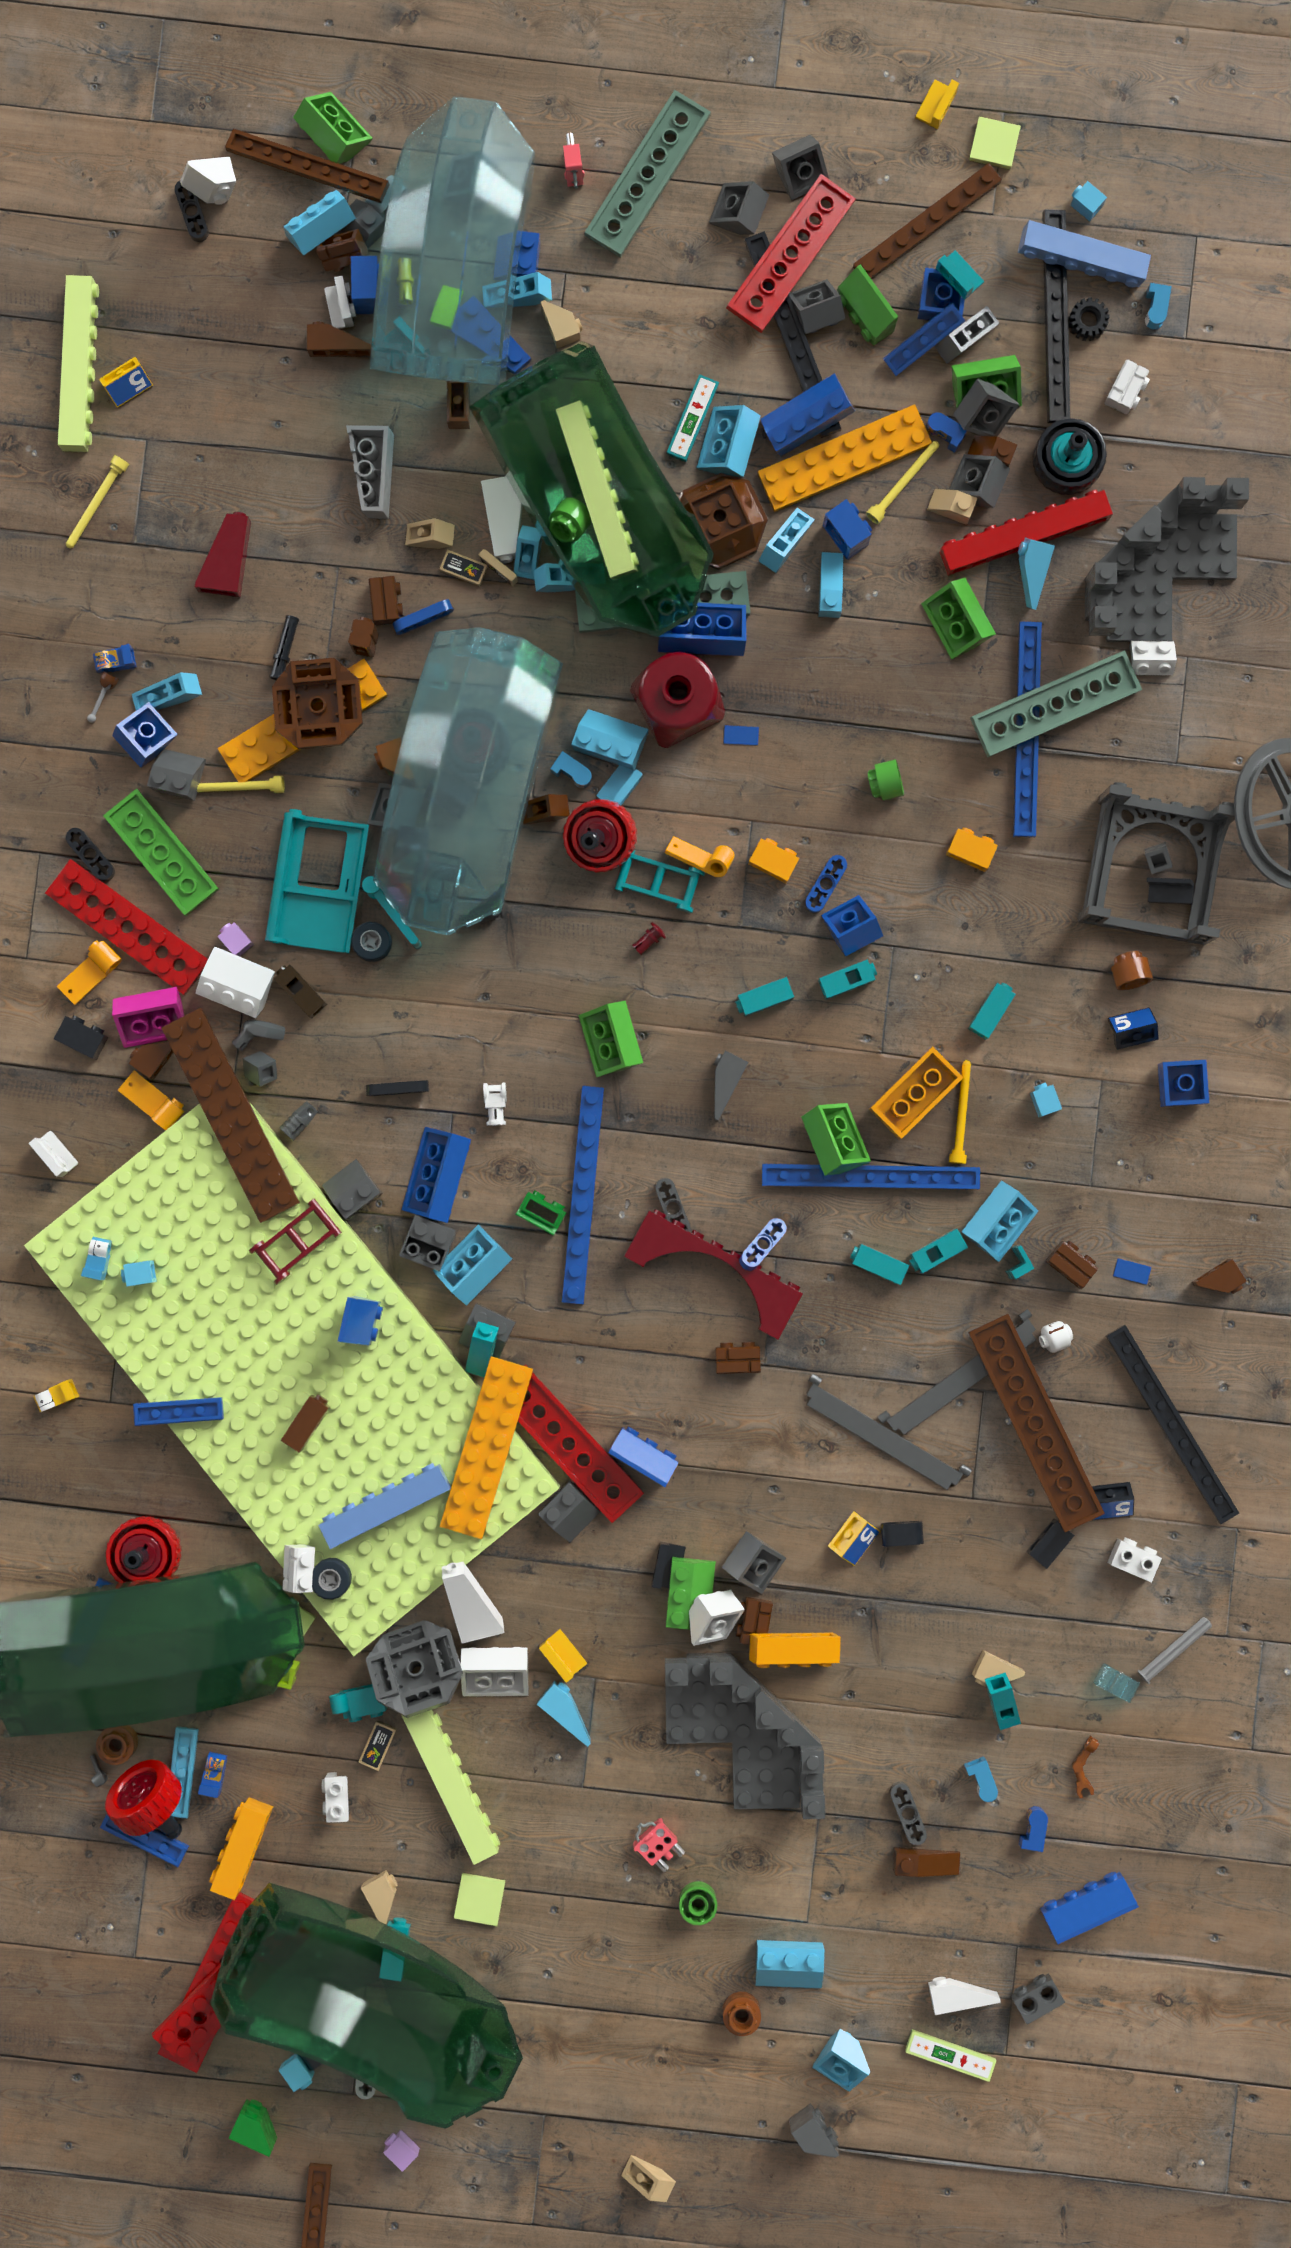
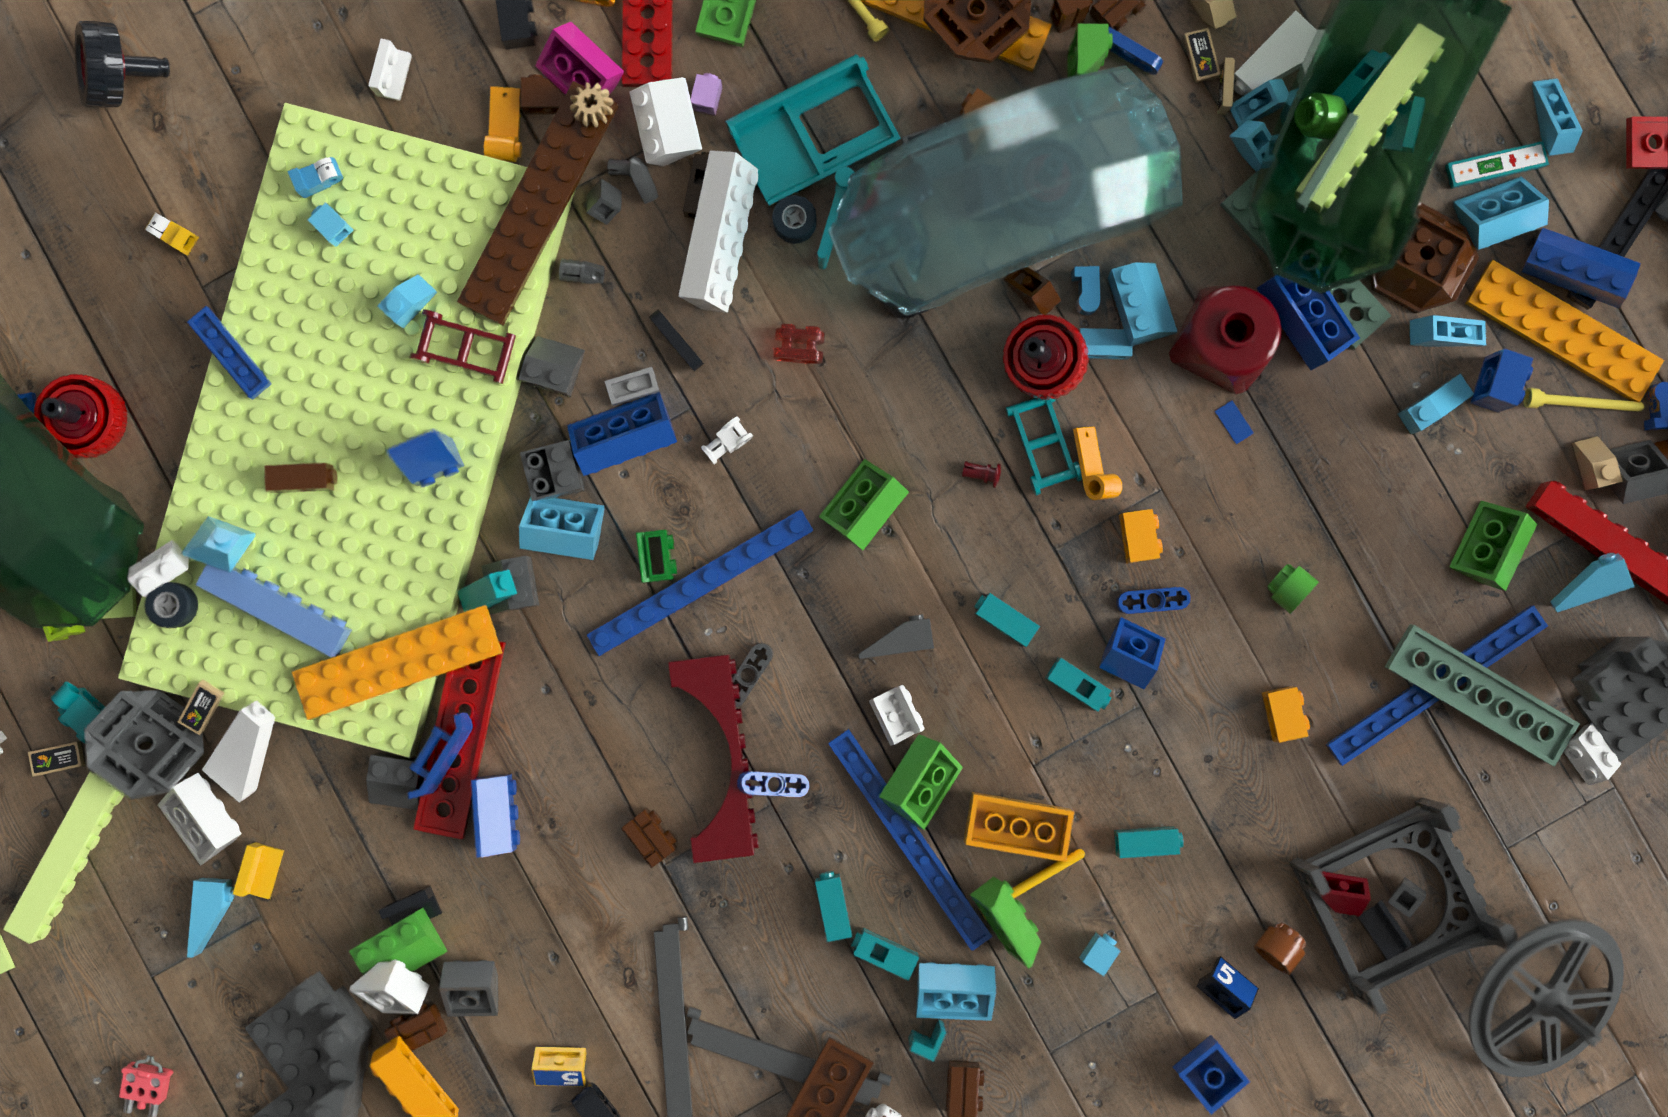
camera: 55 degrees right, 0 degrees up
(183, 1026) = (587, 97): none -> tan gear
(234, 1256) = (407, 300): none -> medium azure slope
(312, 1513) = (218, 544): none -> medium azure slope
(343, 1001) = (718, 231): none -> white brick
(405, 650) = (1088, 49): none -> bright green slope
(407, 1143) = (632, 386): none -> light grey plate
(418, 1610) = (201, 707): none -> tile
(463, 990) = (789, 334): none -> clear red brick
(564, 472) = (1362, 79): none -> teal brick
(579, 1461) = (455, 742): none -> blue piece
(607, 544) = (1326, 162): none -> sand green tile
(621, 468) = (1404, 129): none -> teal panel
(689, 353) = (1556, 117): none -> medium azure slope
(776, 1122) = (897, 714): none -> white bracket
(975, 1147) = (1008, 920): none -> bright green slope
(1124, 899) = (1347, 893): none -> dark red slope

